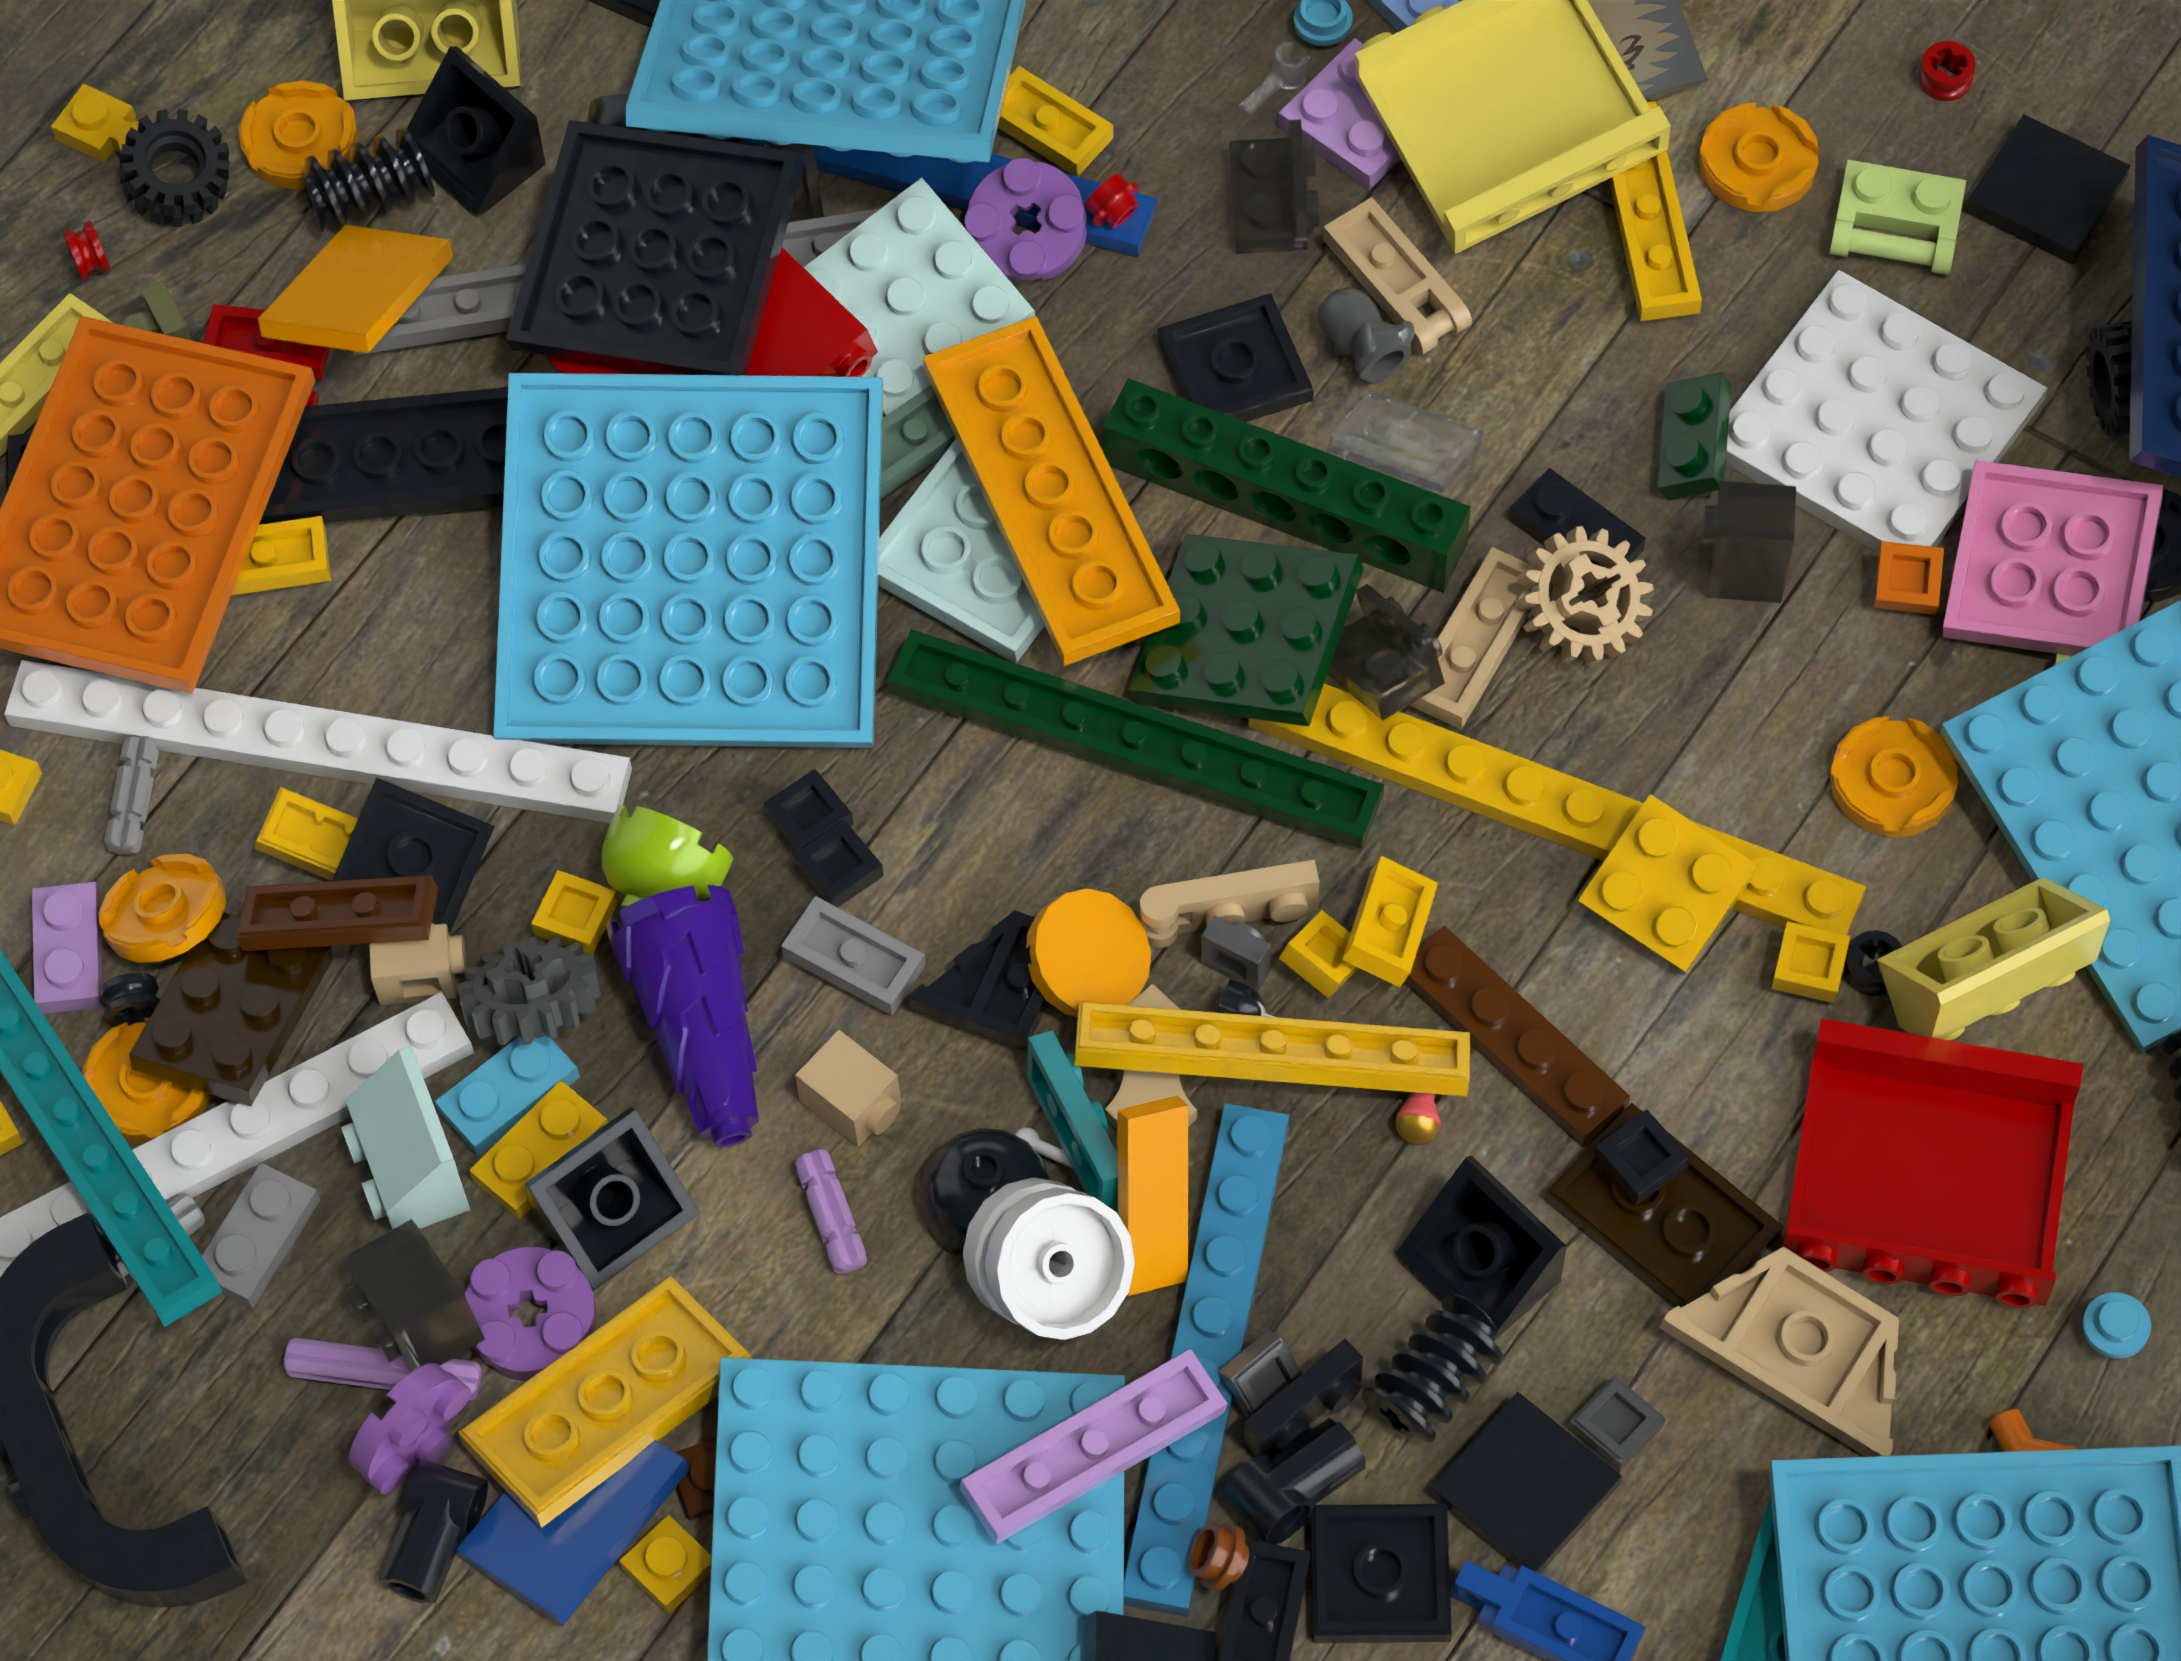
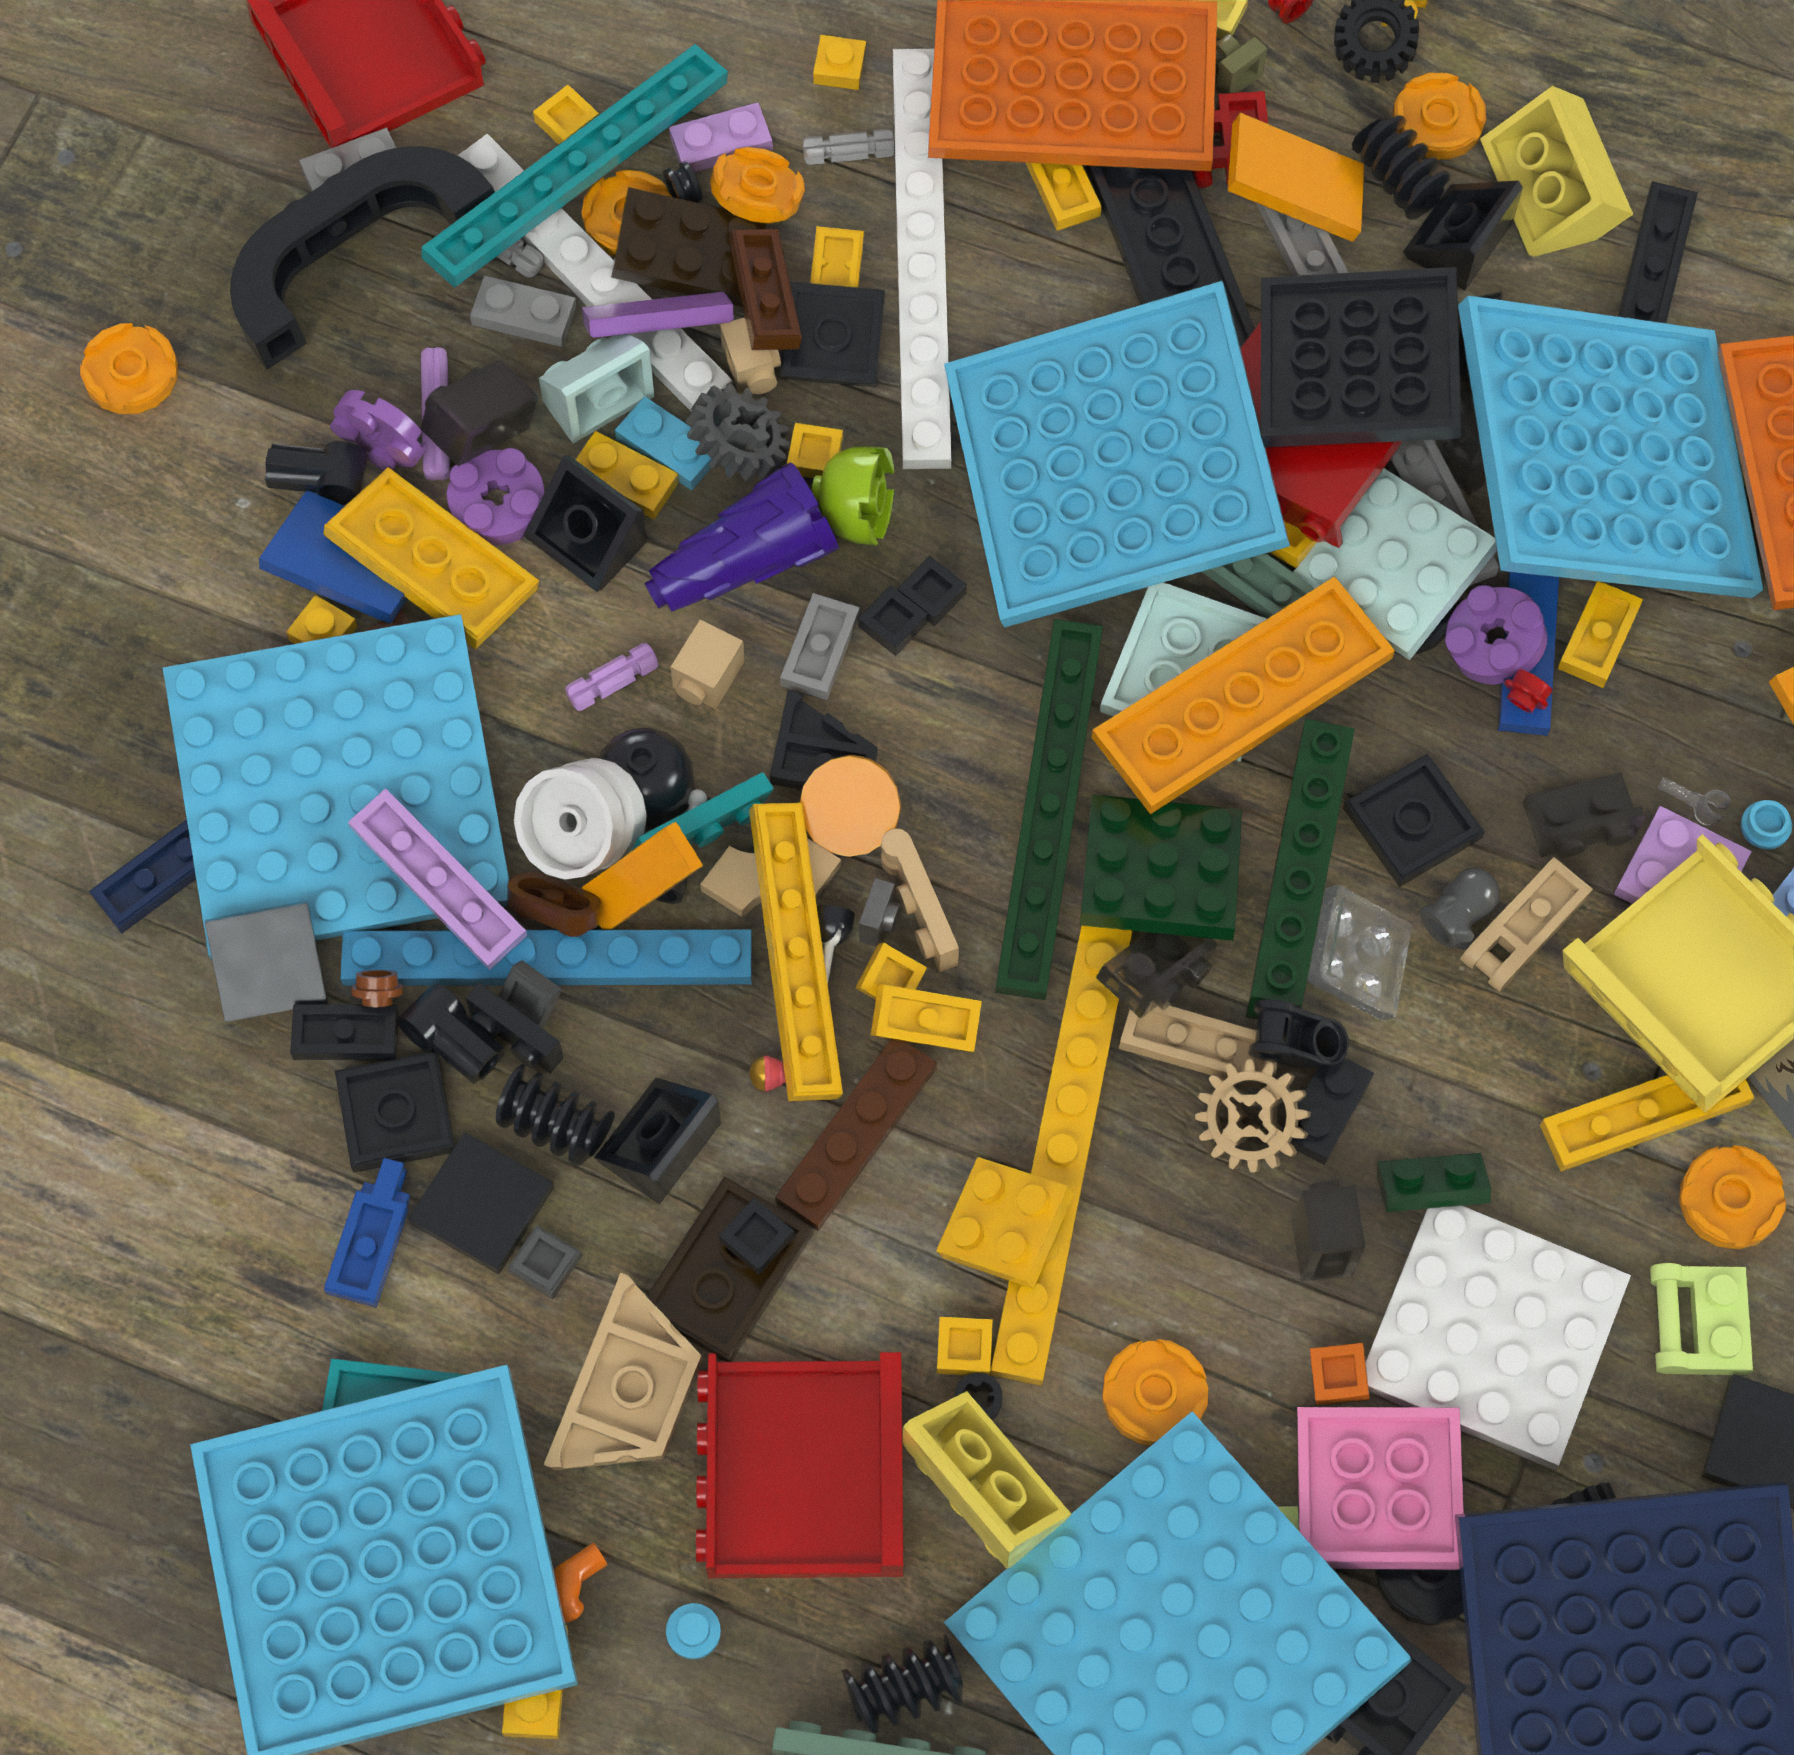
camera: 75 degrees right, 5 degrees up
(336, 1049) = (657, 314): none -> medium lavender tile
(1144, 1323) = (553, 903): none -> reddish brown plate
(1505, 520) = (1297, 1036): none -> black piece

